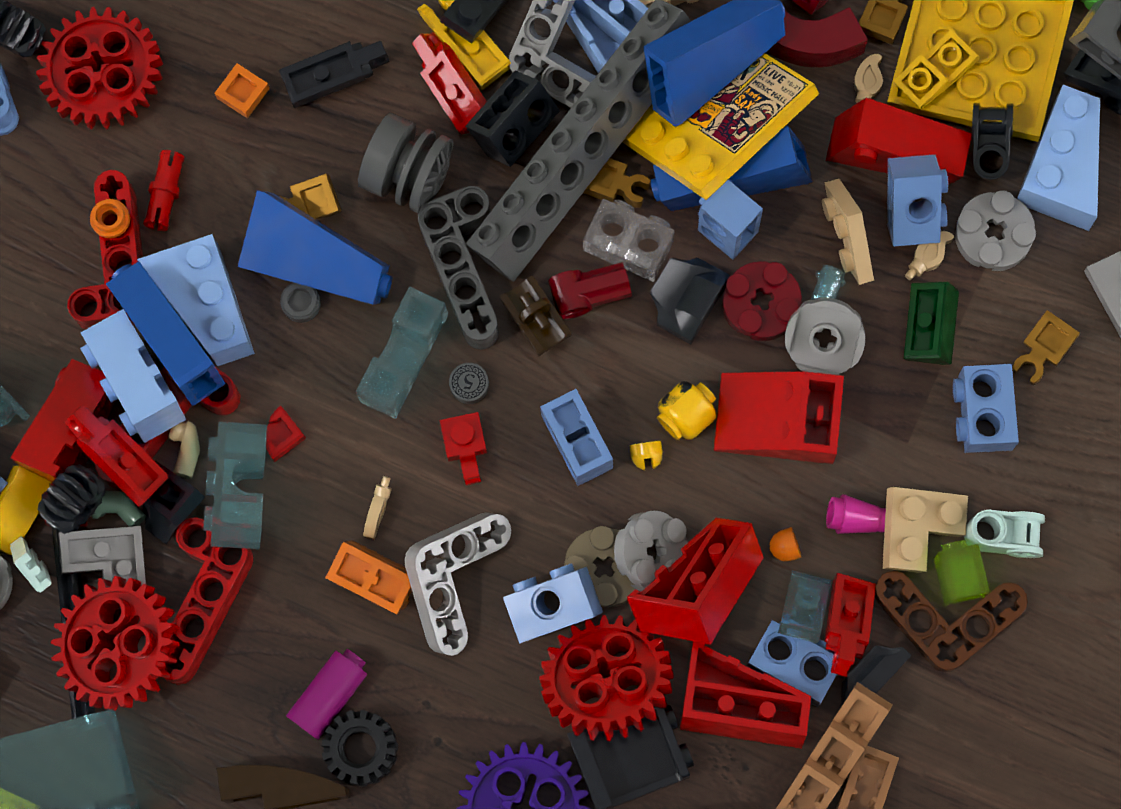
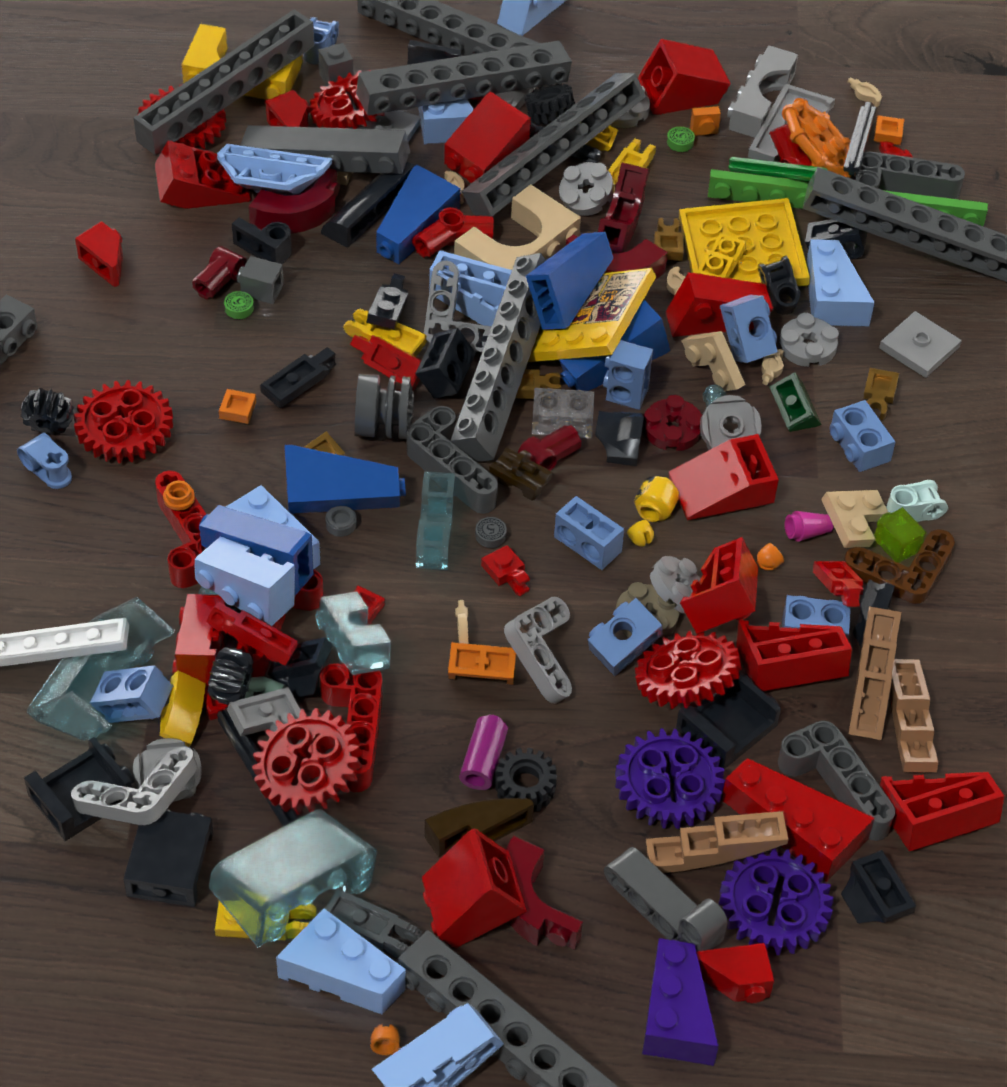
camera: 30 degrees left, 25 degrees down
(29, 565) = (221, 724): light aqua tile -> none
(164, 190) = (206, 481): red pin -> none
(189, 448) = (296, 622): tan arm -> none
(805, 606) = (805, 583): clear light blue plate -> none

